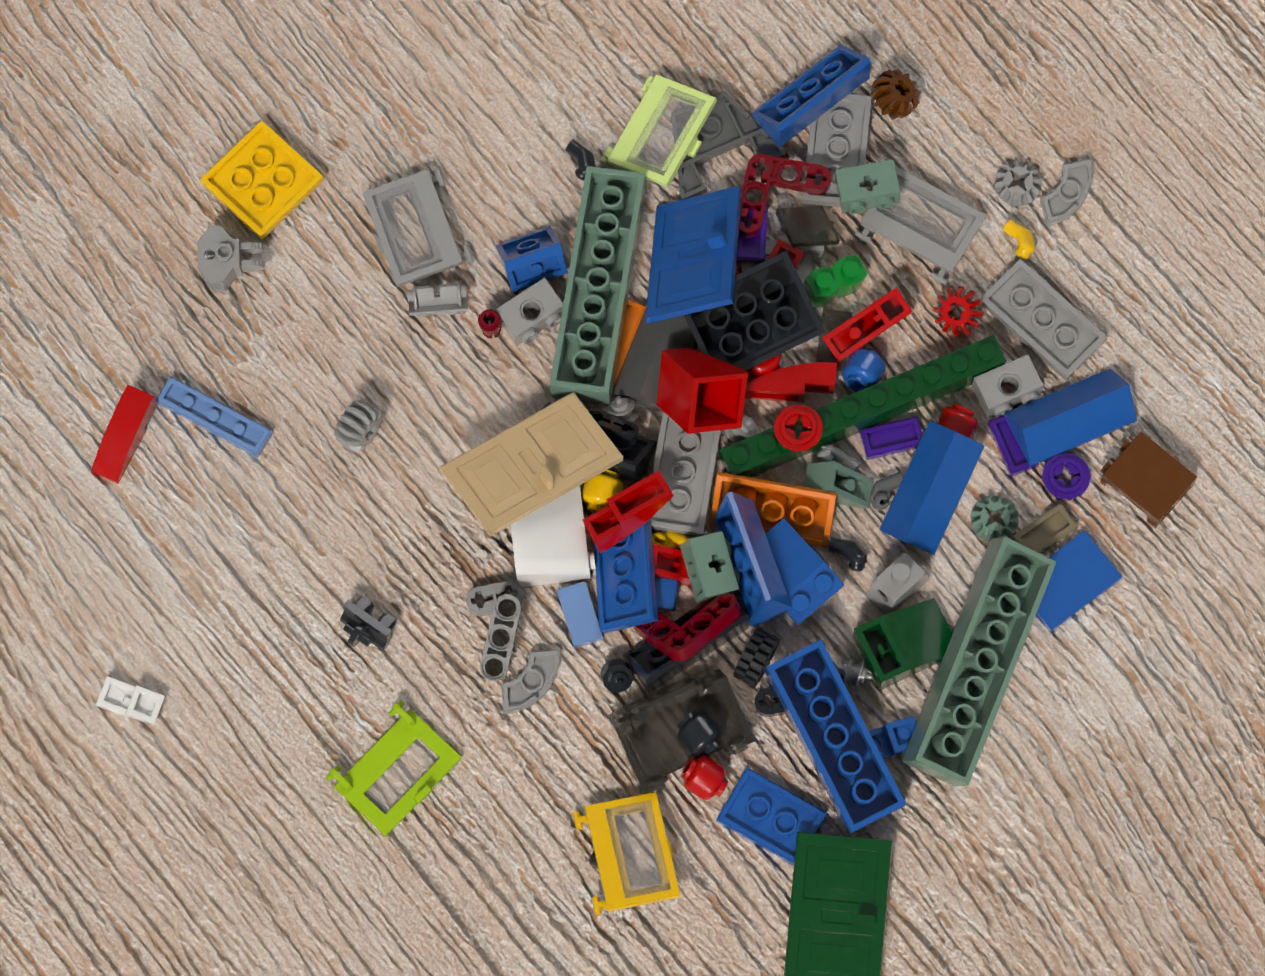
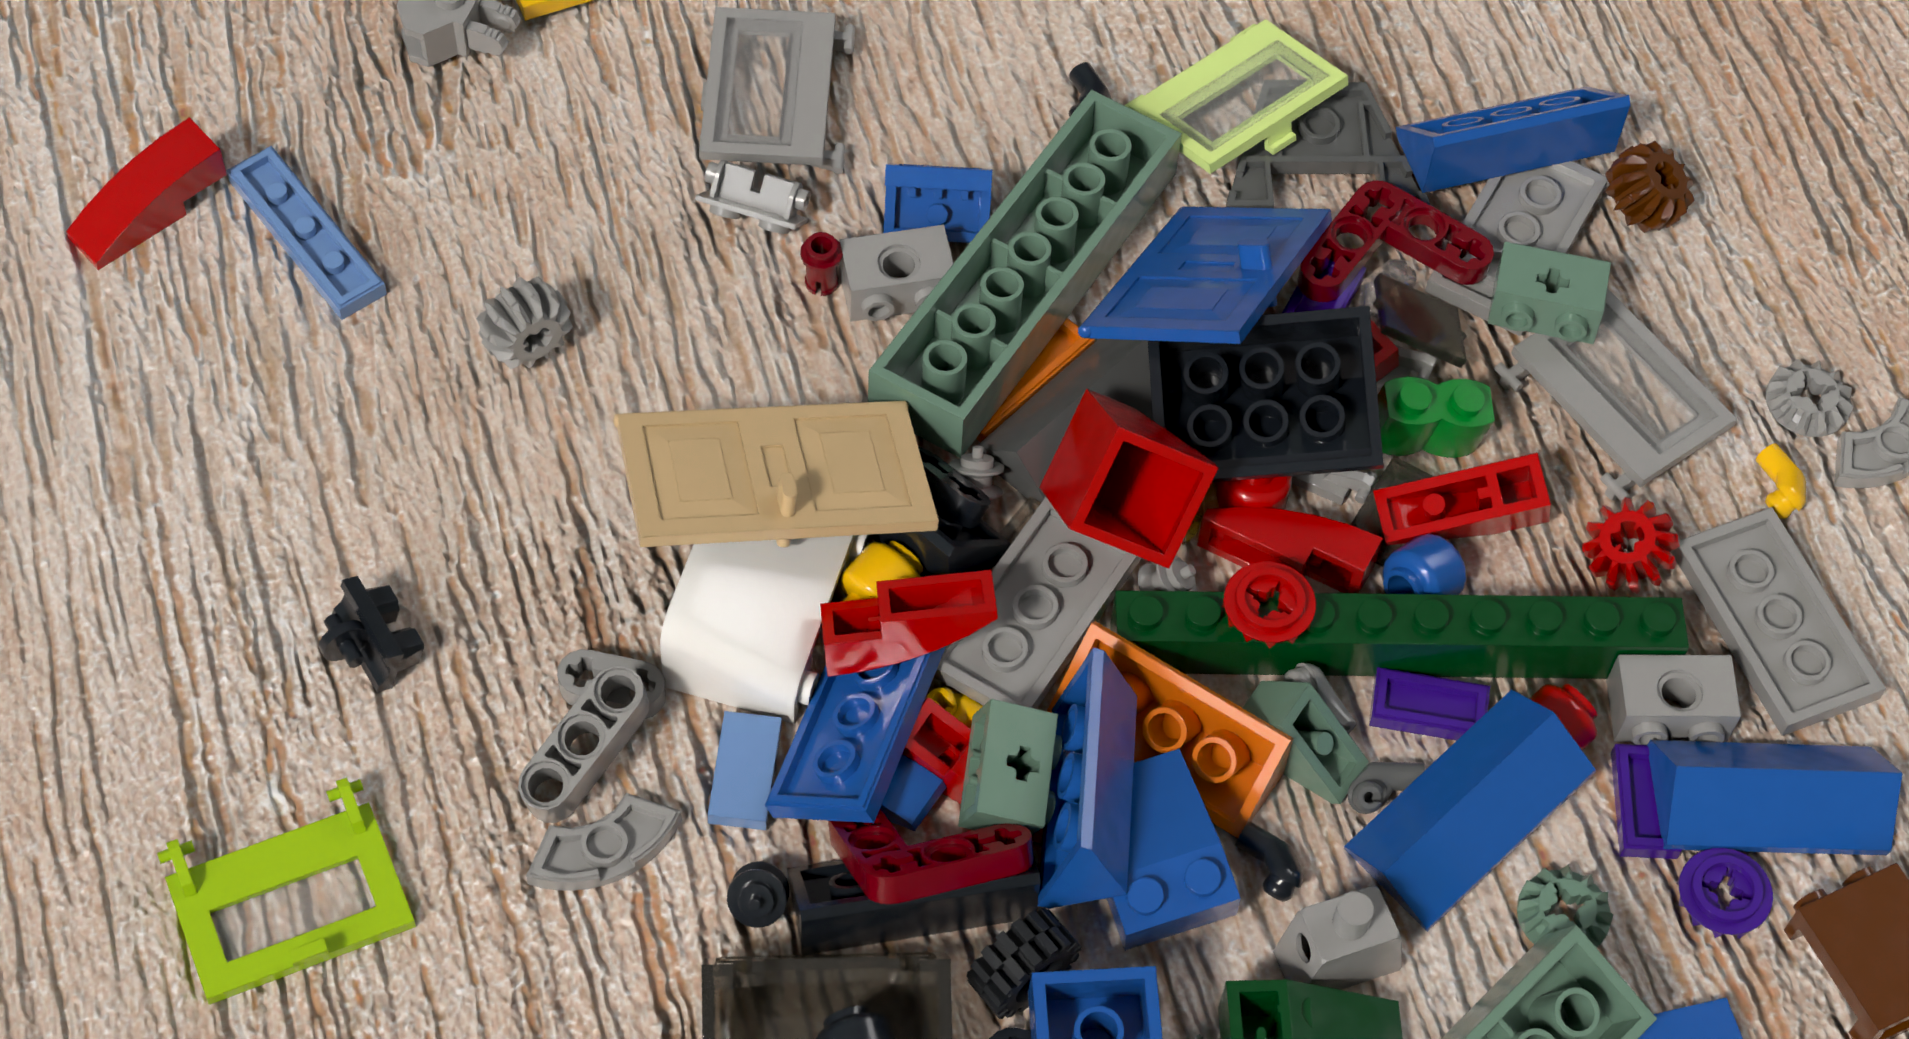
camera: 15 degrees right, 15 degrees down
(1047, 530) = (1664, 968): dark tan tile -> none

